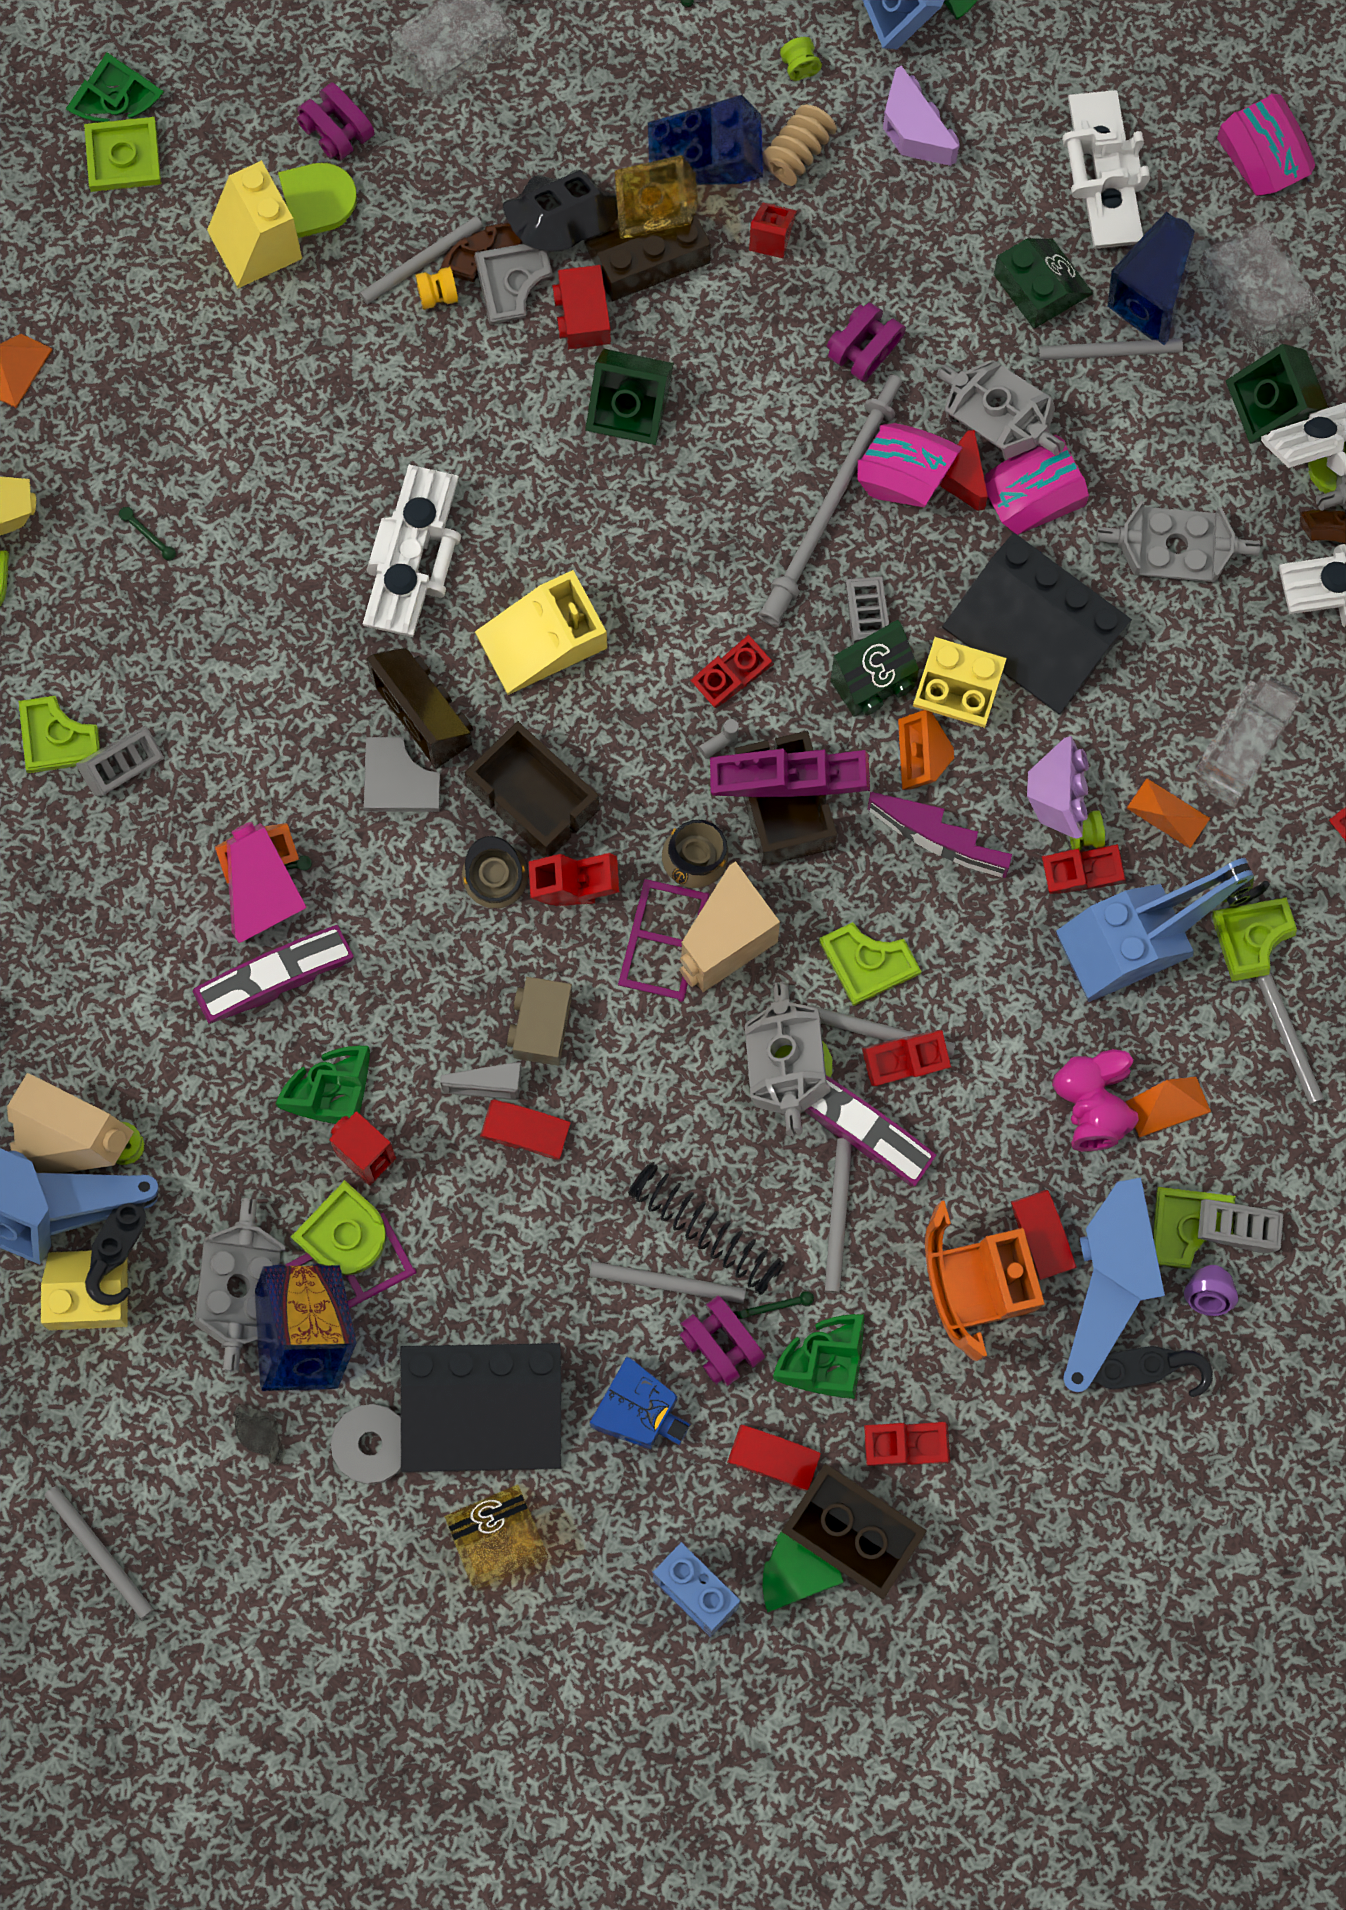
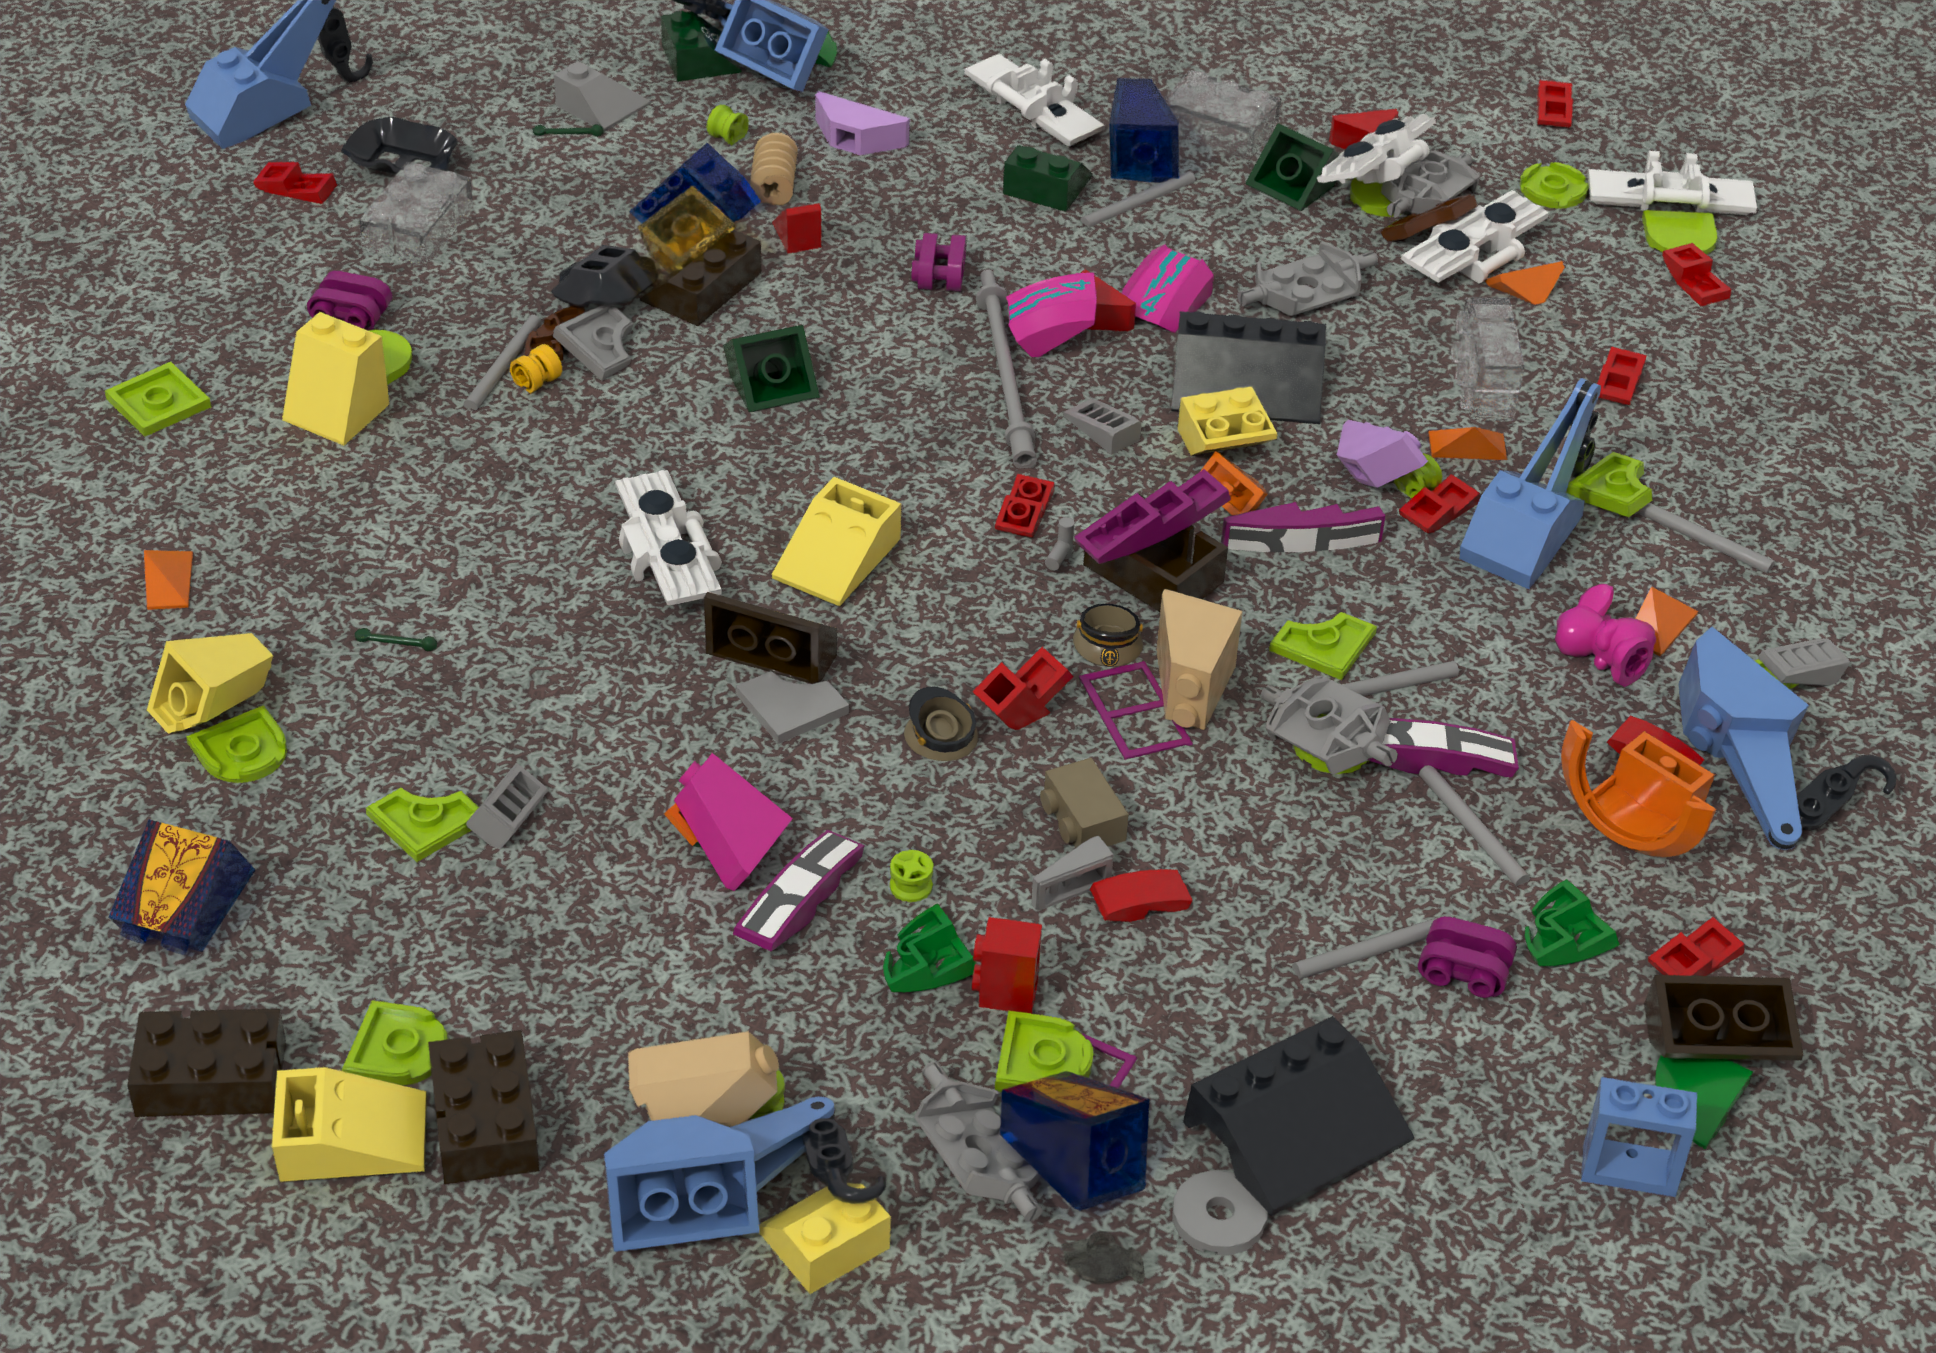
camera: 35 degrees left, 30 degrees down
(131, 96) = (118, 360): green brick -> none
(362, 1001) = (908, 865): none -> lime wheel
(496, 1537) = (1414, 1216): clear yellow slope -> none
(532, 790) = (927, 645): dark brown piece -> none
(583, 306) = (680, 330): red brick -> none
(635, 1191) = (1460, 884): black piece -> none
(638, 1409) = (1443, 1044): blue torso -> none
(774, 1457) = (1590, 1021): red slope -> none
(806, 1299) = (1504, 897): dark green hinge -> none
(875, 670) = (1149, 443): dark green slope -> none
(906, 1057) = (1423, 685): red slope -> none
(1012, 427) = (1113, 247): light grey plate -> none
(1211, 1291) = (1829, 717): medium lavender cone -> none
(1267, 145) = (1141, 43): dark pink slope -> none

